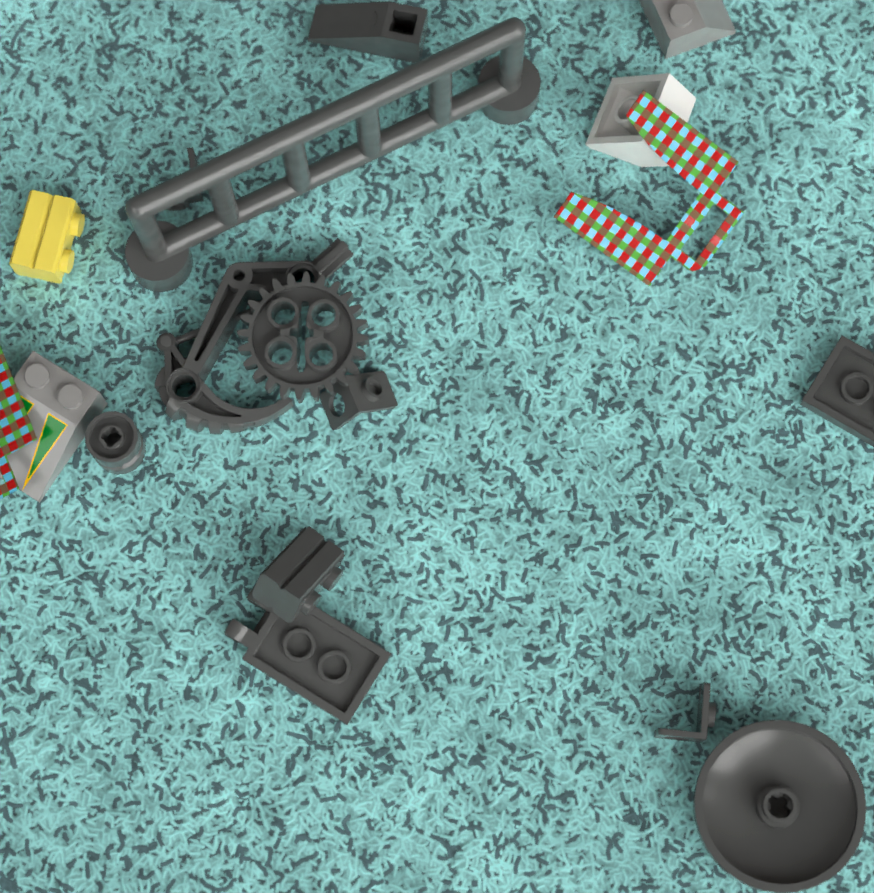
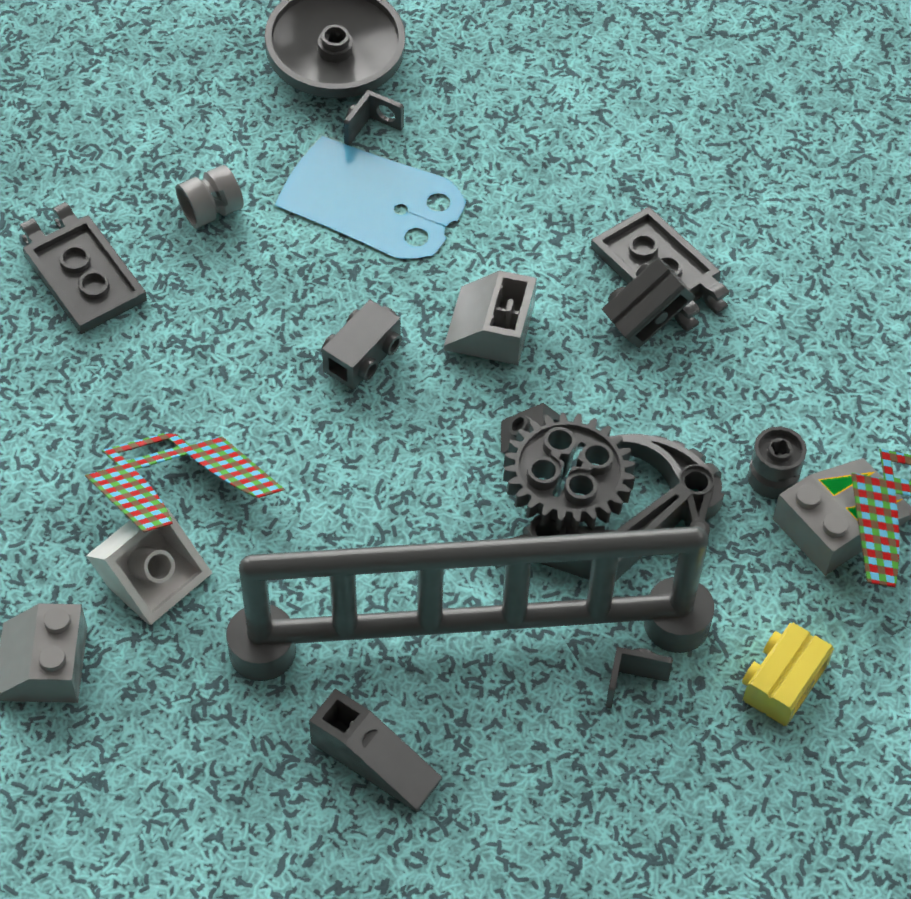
camera: 160 degrees left, 20 degrees down
(451, 501) = (493, 317): none -> light grey slope
(558, 431) = (361, 344): none -> brick
(665, 627) = (358, 197): none -> medium azure piece
(804, 531) = (202, 206): none -> light grey wheel

